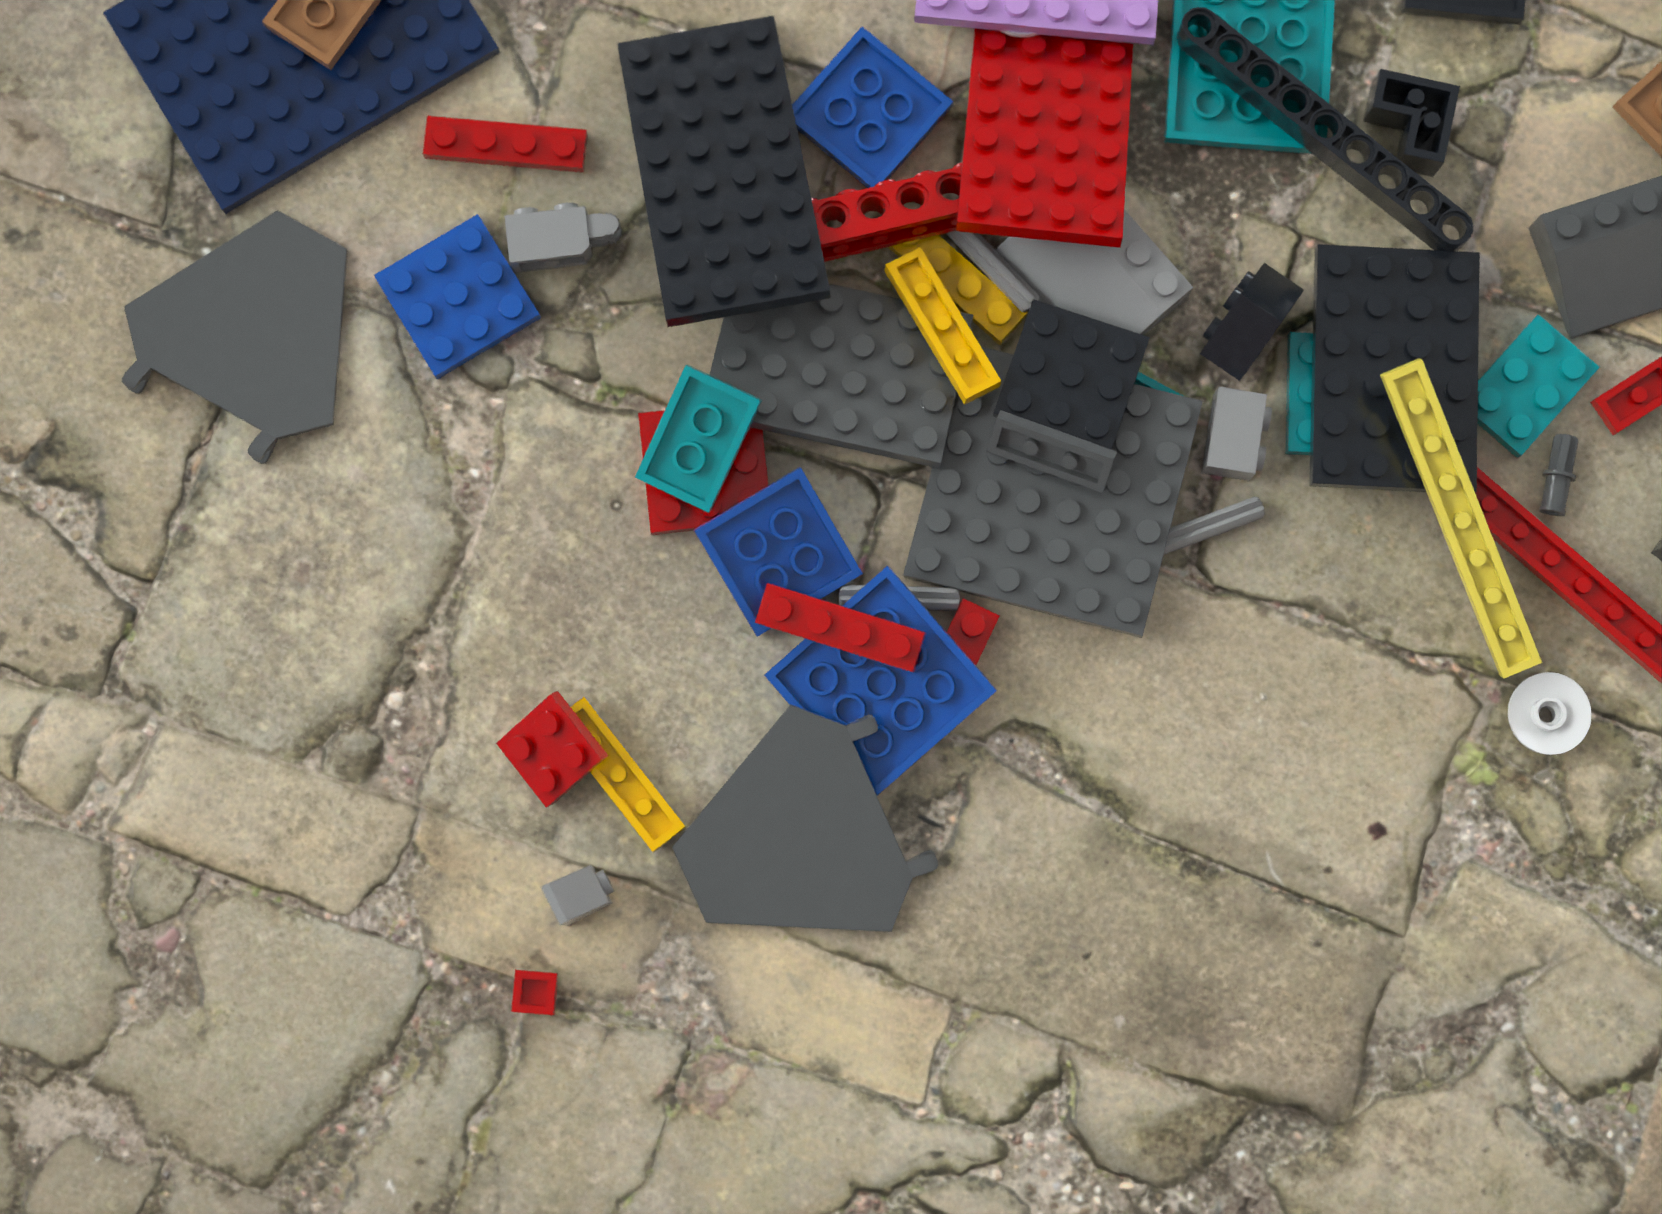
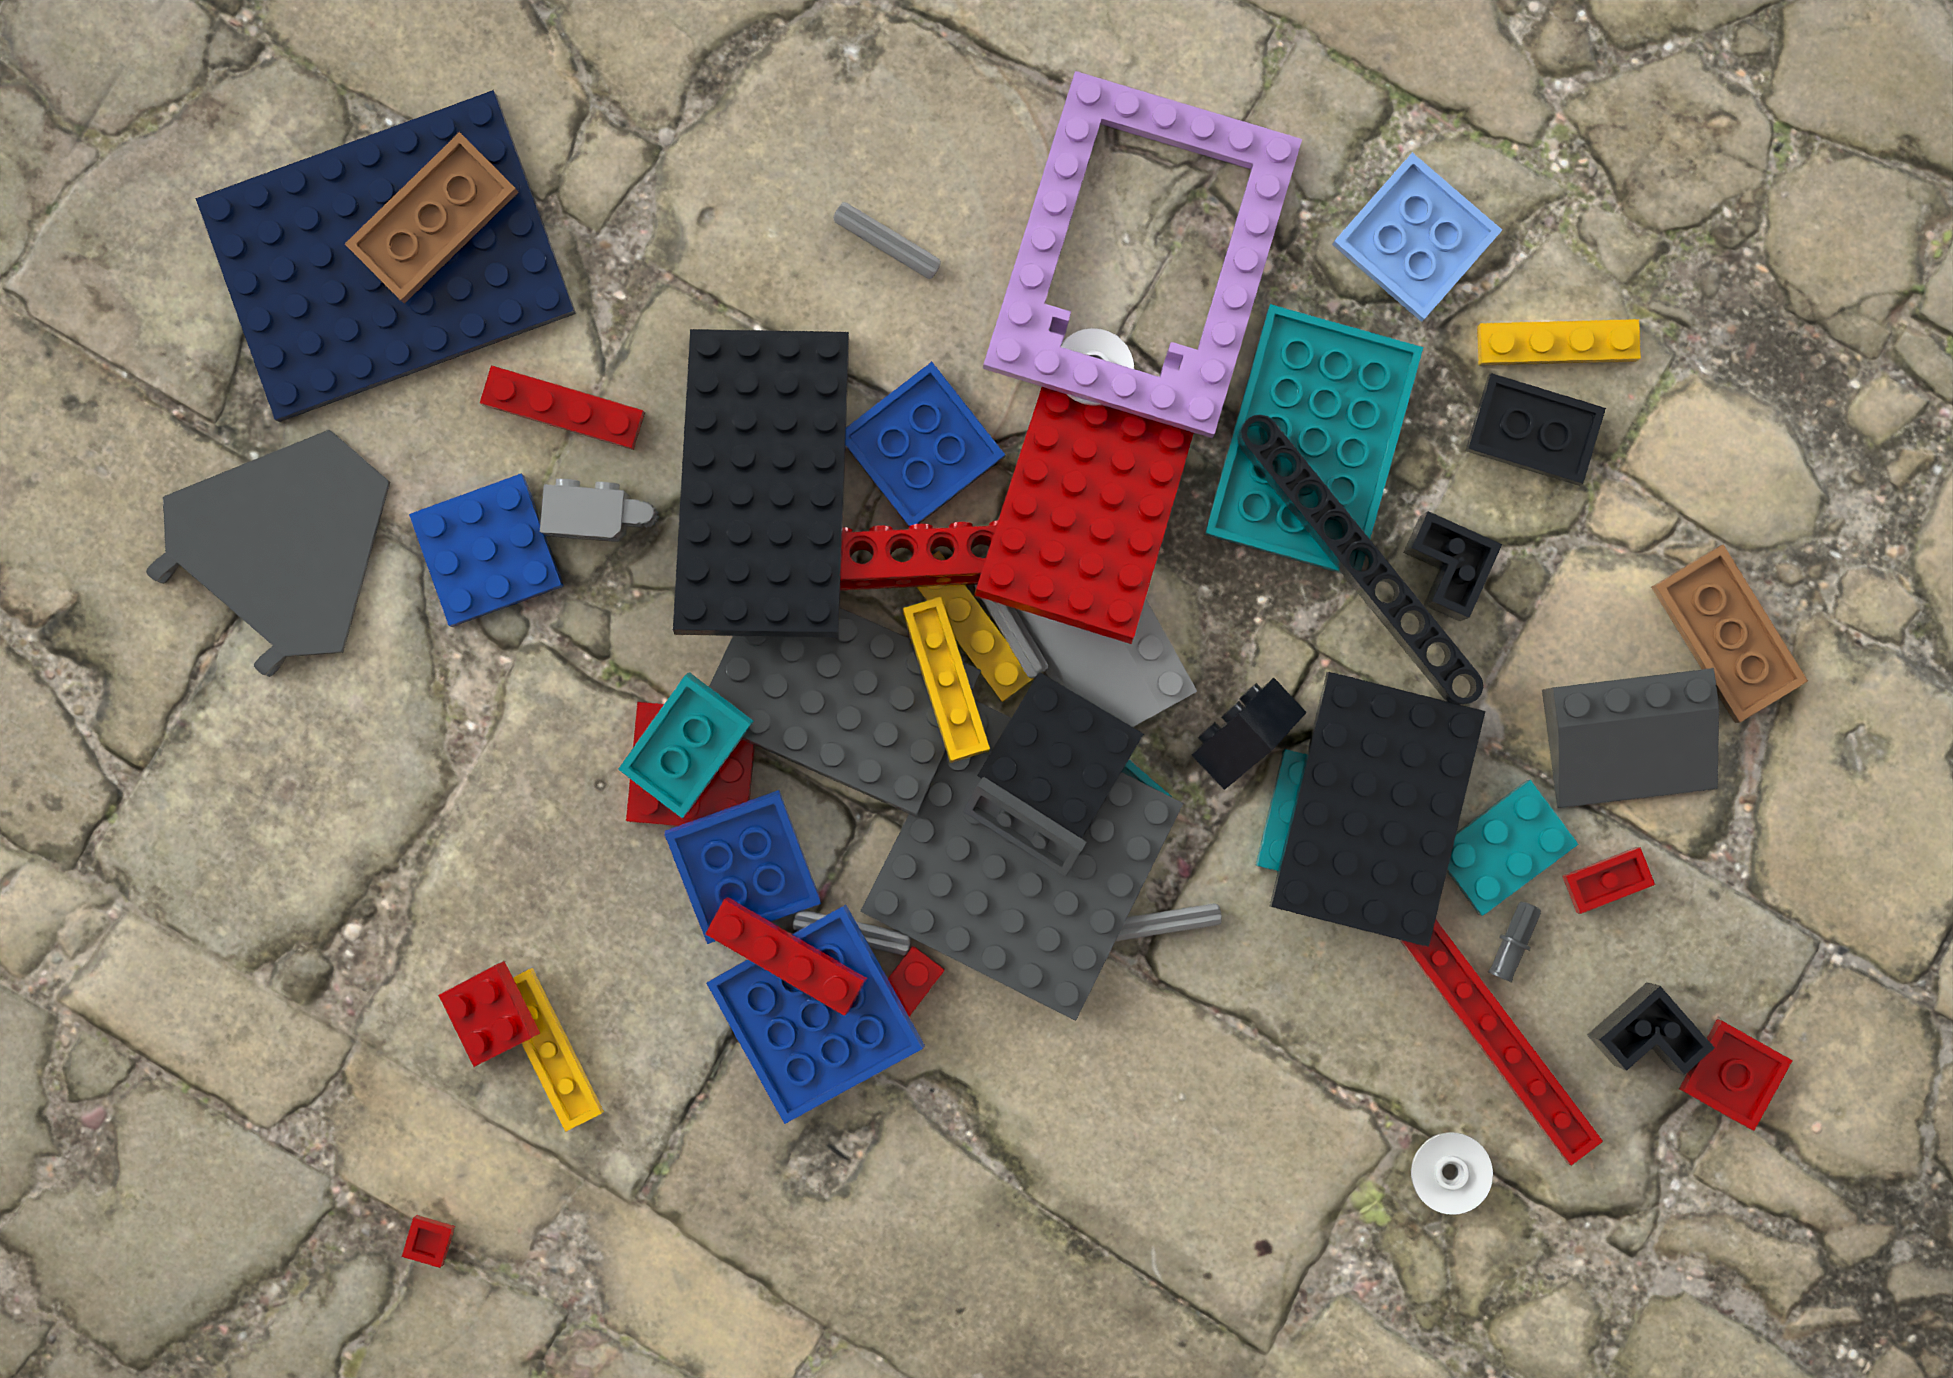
camera: 15 degrees right, 5 degrees up
(578, 894) = (484, 1161): light grey slope -> none
(799, 836) = (709, 1144): dark grey flag -> none
(1235, 434) = (1210, 839): light grey brick -> none
(1460, 518) = (1406, 971): light yellow plate -> none

